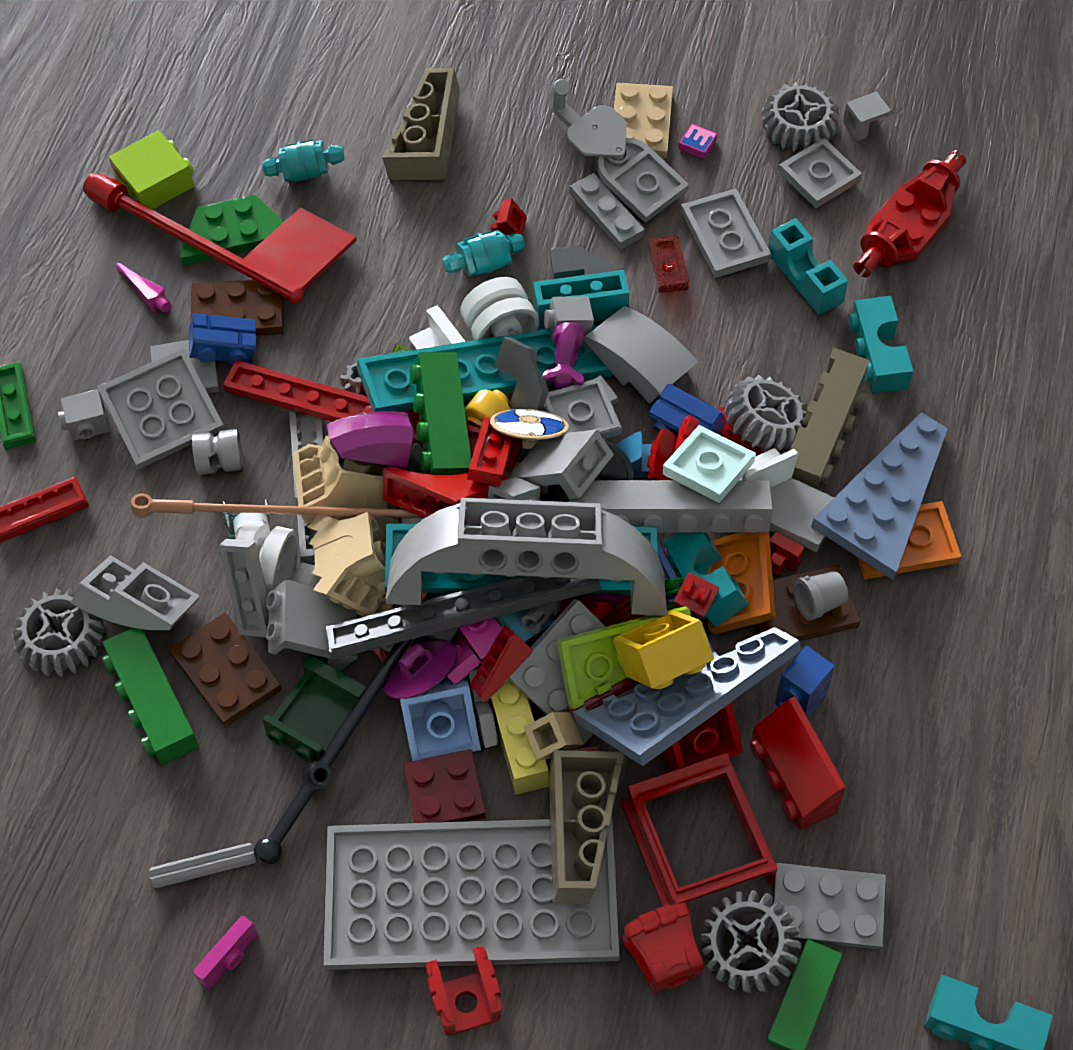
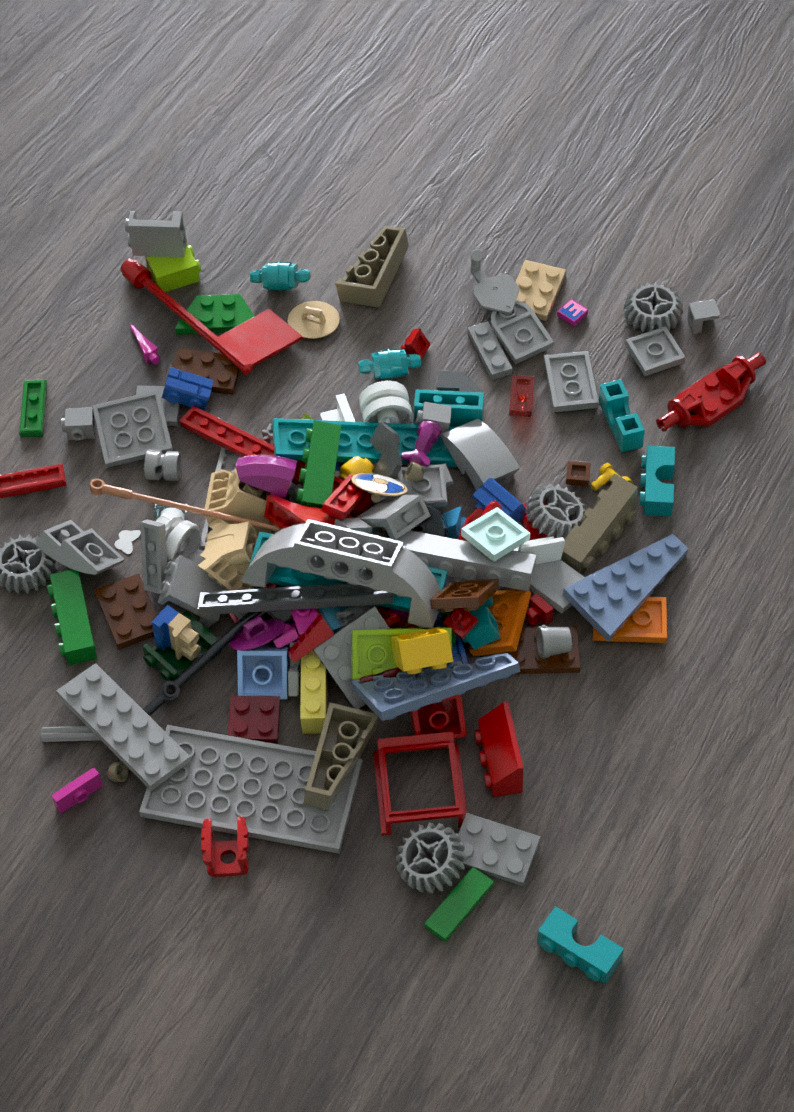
camera: 15 degrees right, 5 degrees down
(125, 137) = (157, 237): none -> light grey panel
(192, 566) = (125, 541): none -> white sticker
(267, 844) = (123, 726): none -> light grey plate
(282, 912) = (120, 768): none -> dark tan hinge
(308, 691) = (175, 631): none -> tan hips
(363, 211) = (314, 319): none -> tan shield
(553, 733) = (334, 691): tan brick -> none
(568, 397) = (414, 472): none -> dark tan hinge
(664, 947) = (370, 847): red piece -> none
(695, 557) = (464, 594): none -> reddish brown plate
(774, 354) = (578, 473): none -> reddish brown plate
(806, 679) = (524, 698): blue brick -> none
(811, 349) = (606, 473): none -> yellow piece

